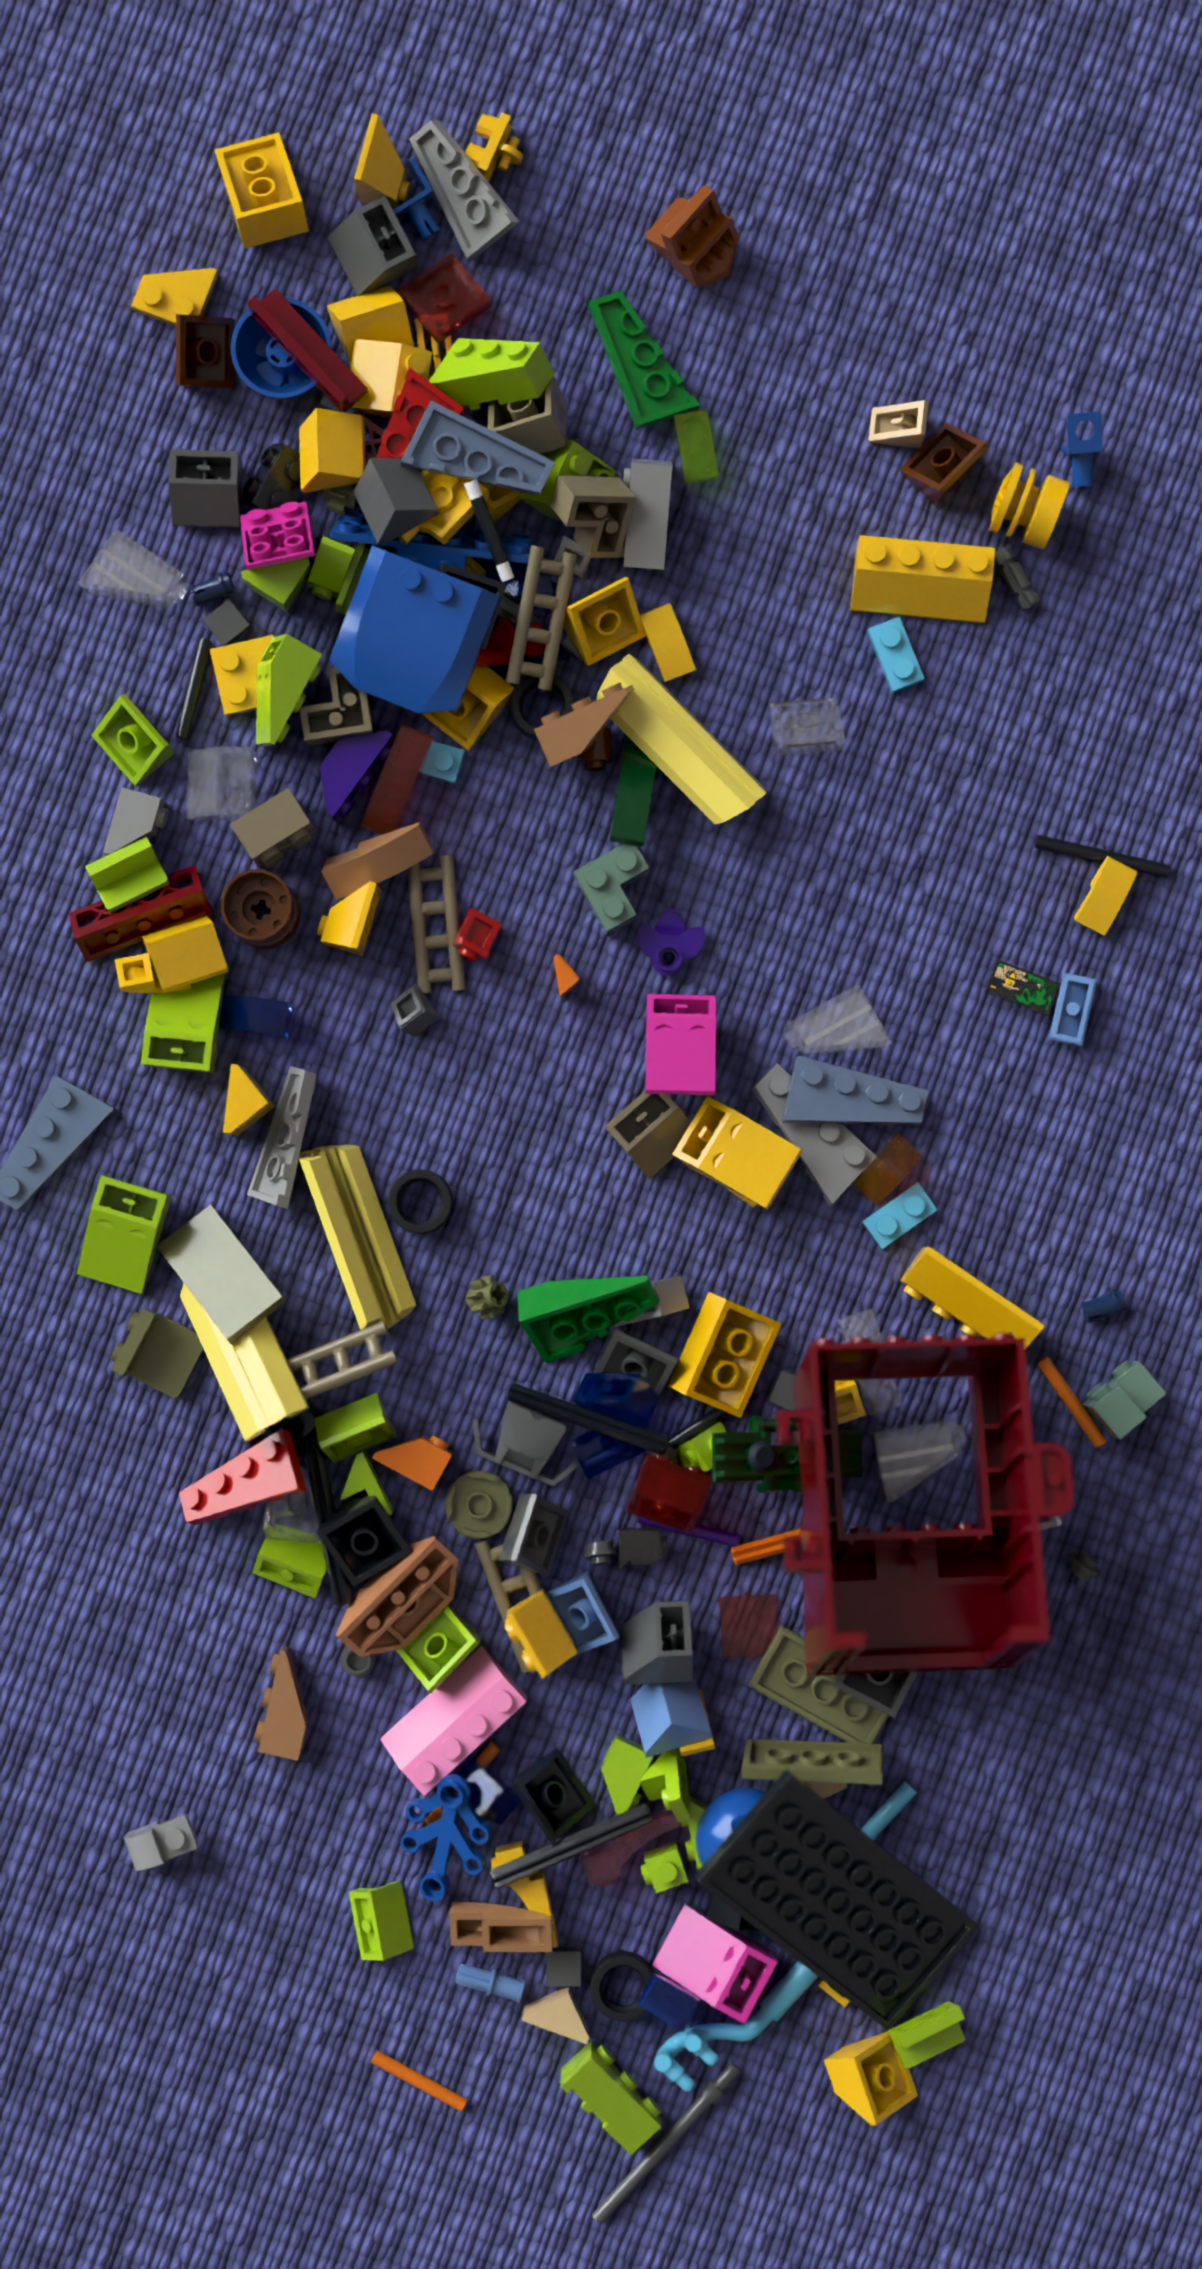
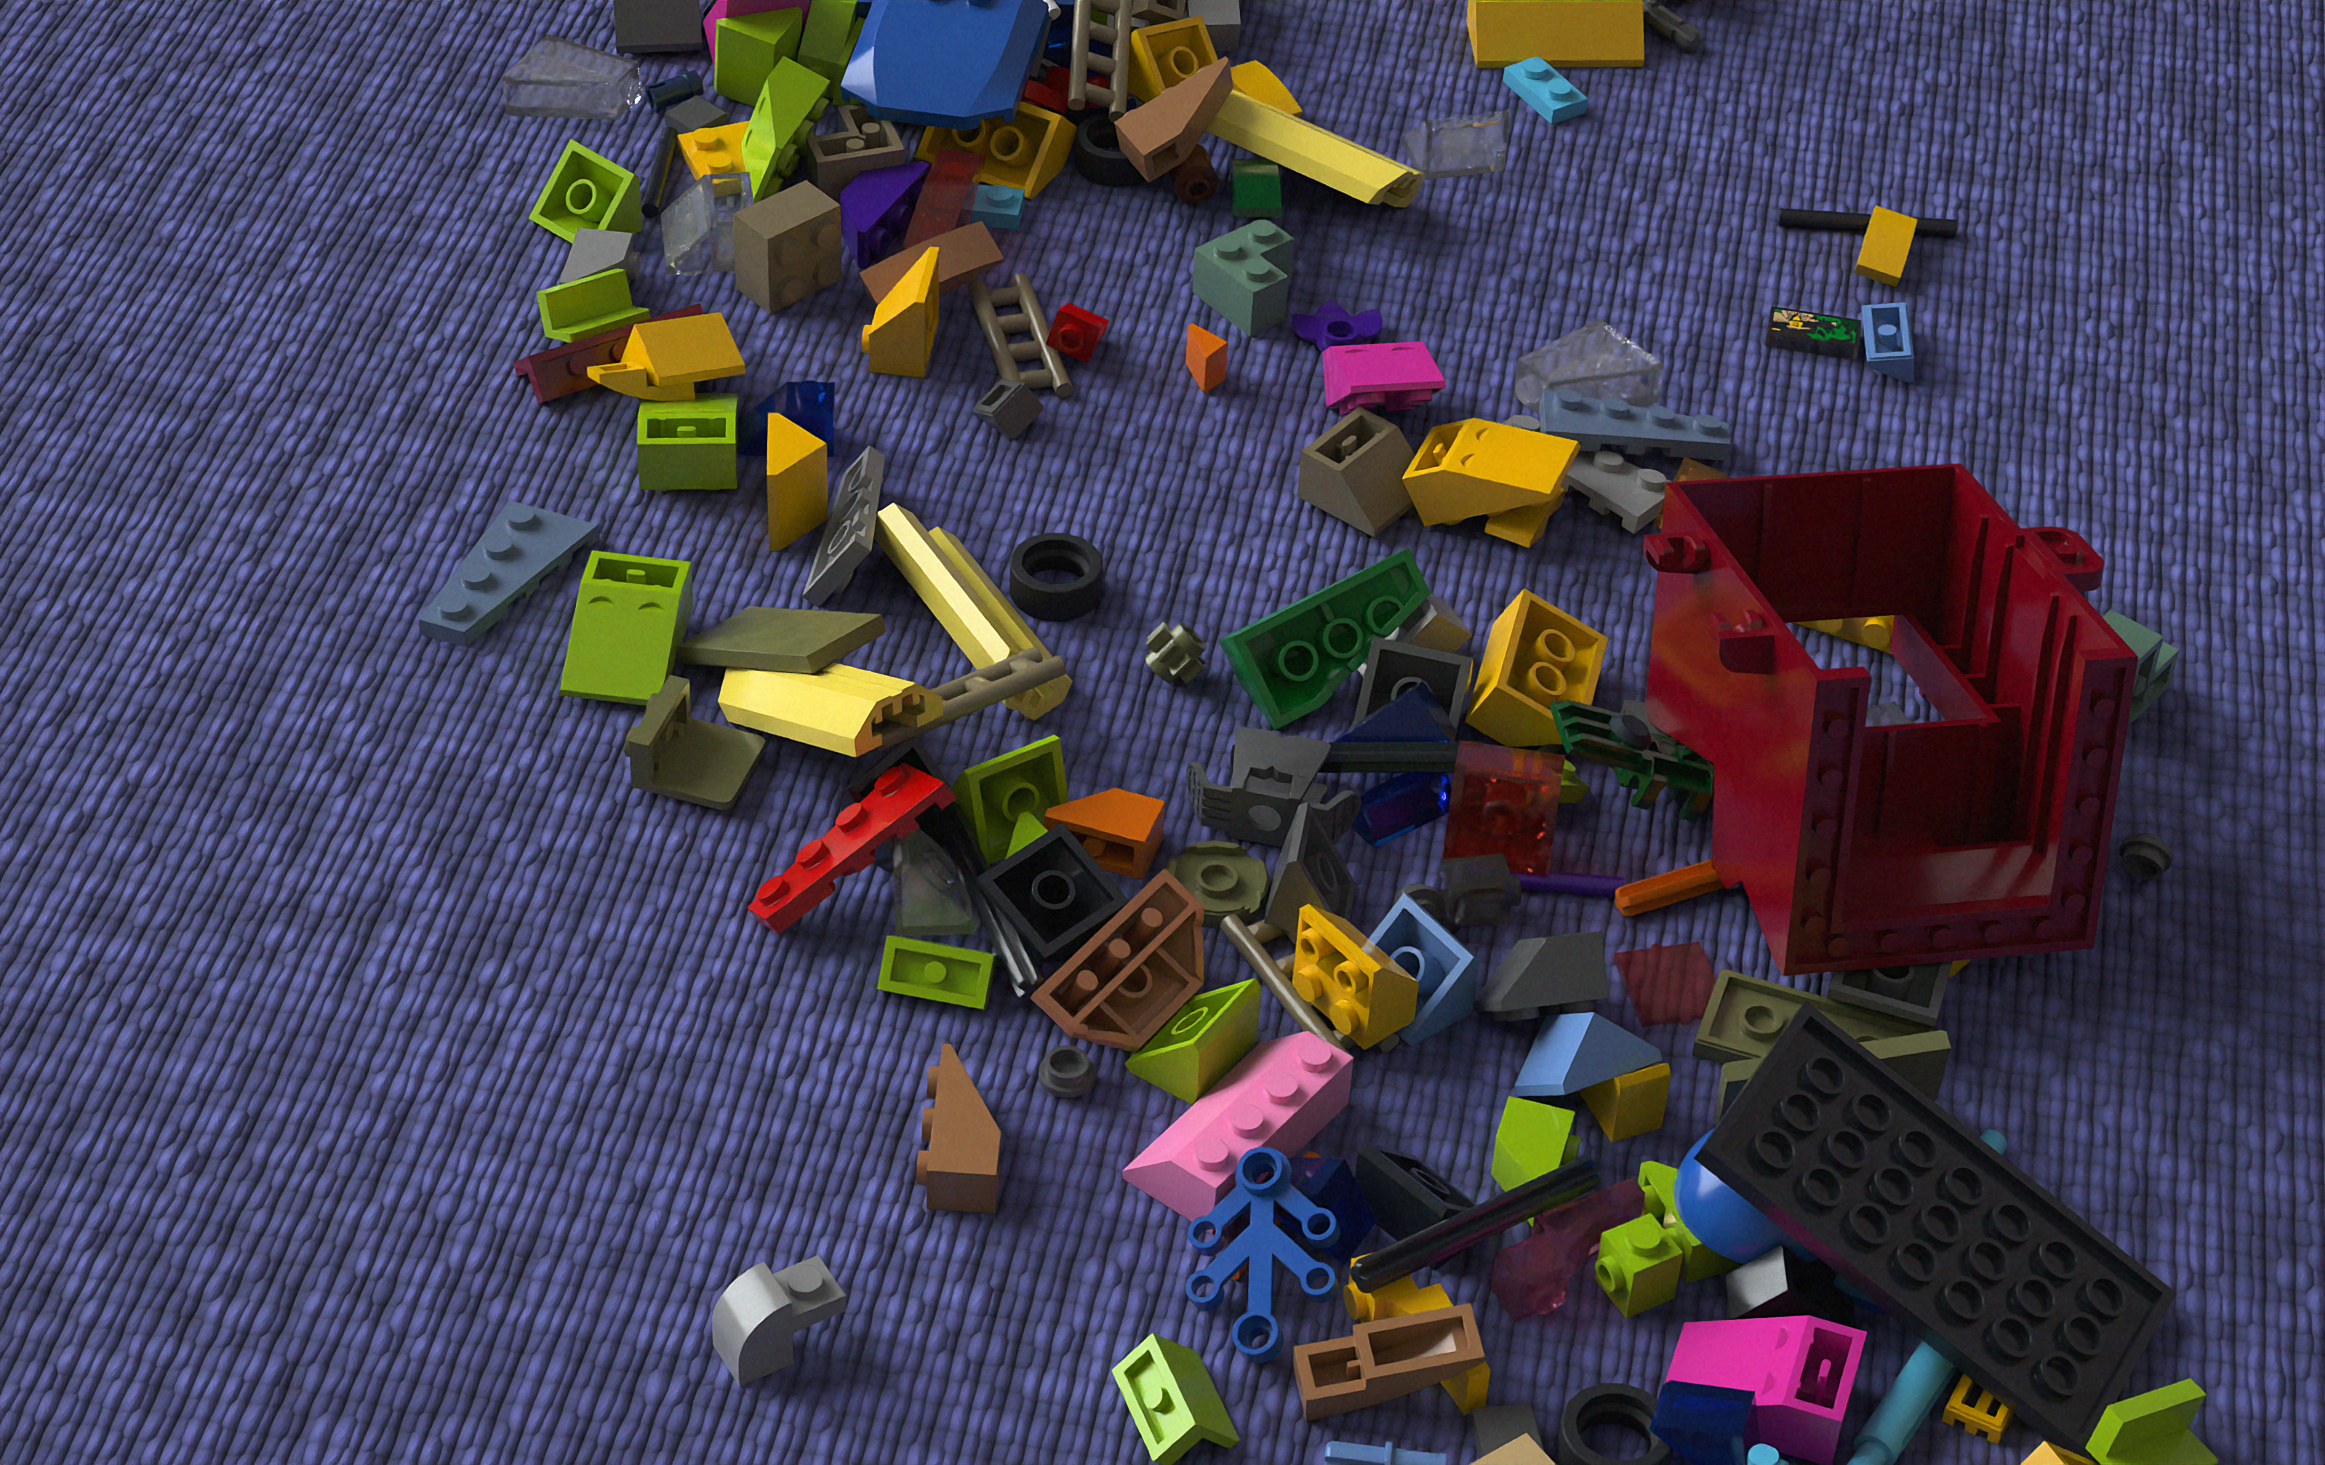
camera: 10 degrees left, 45 degrees down
(251, 893) = (782, 315): reddish brown wheel -> none
(669, 1781) = (1613, 1139): lime slope -> none

